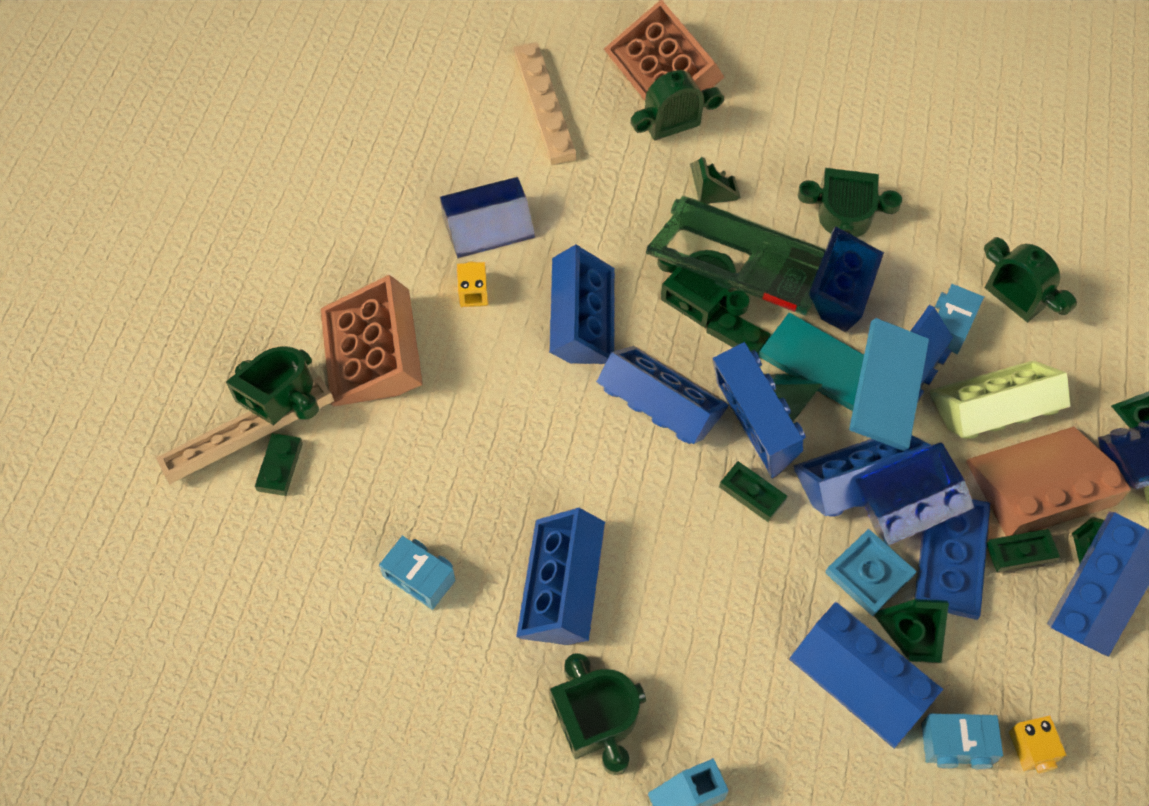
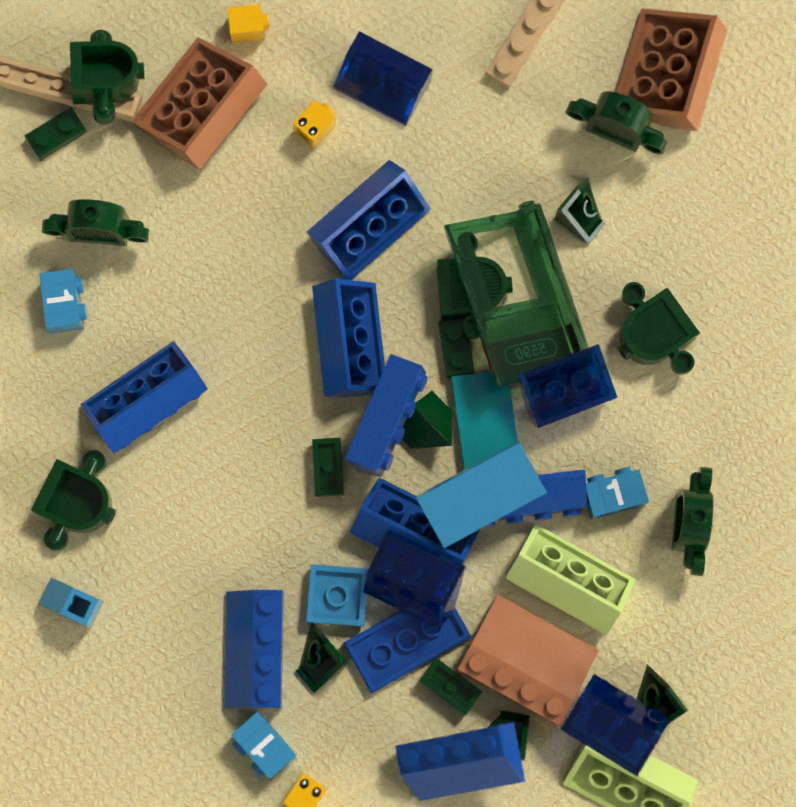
camera: 45 degrees right, 20 degrees up
(349, 266) = (247, 23): none -> yellow brick
(385, 486) = (96, 223): none -> dark green piece

